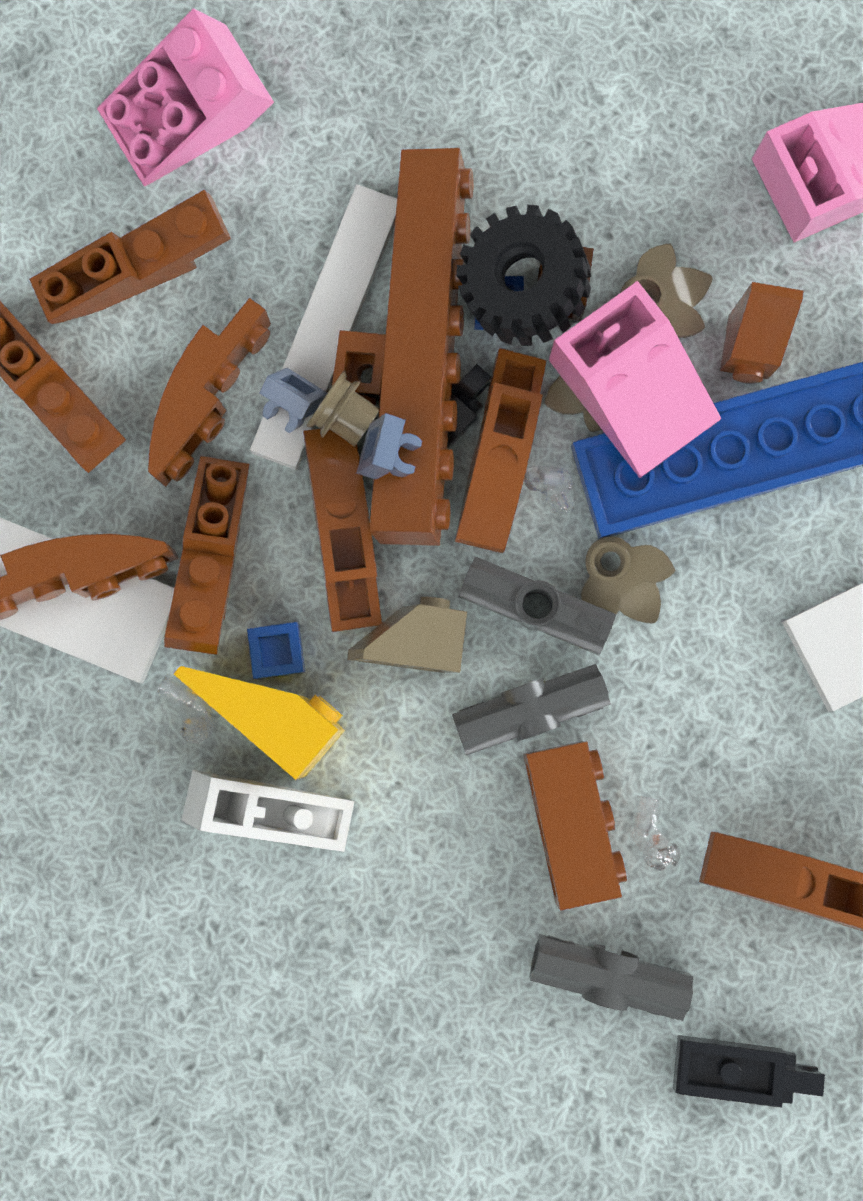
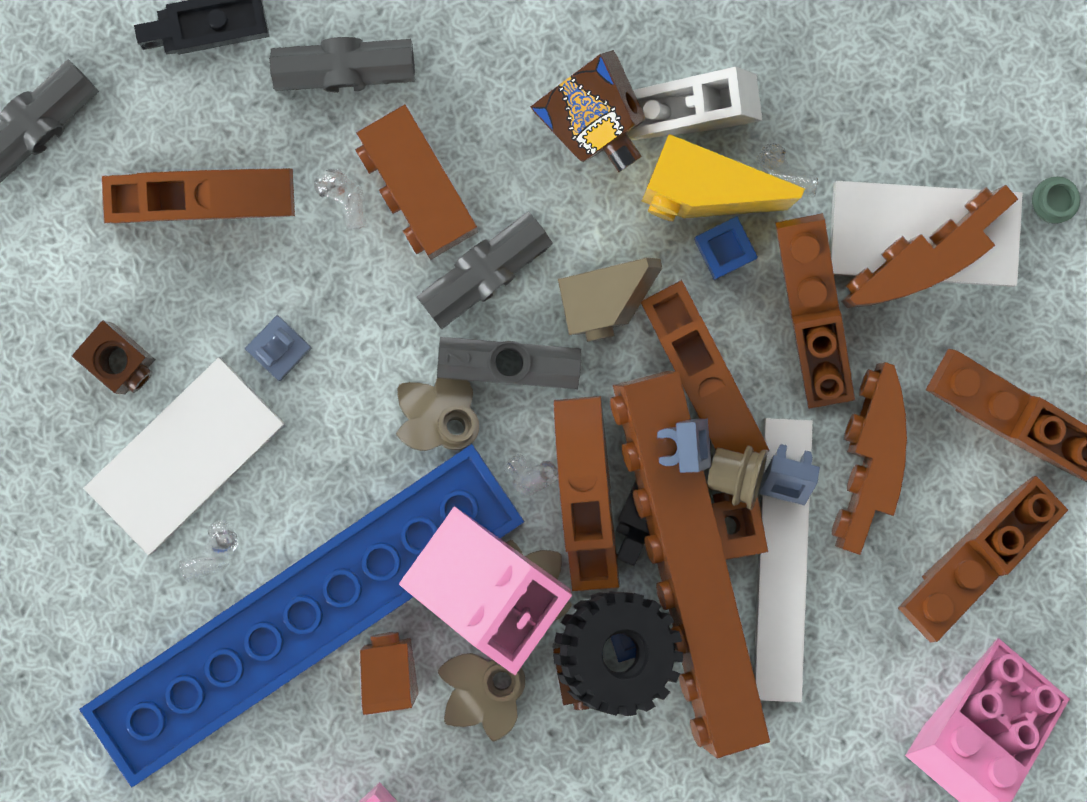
camera: 155 degrees right, 5 degrees up
(363, 835) = (594, 112): none -> torso
(767, 701) = (278, 348): none -> sand blue tile

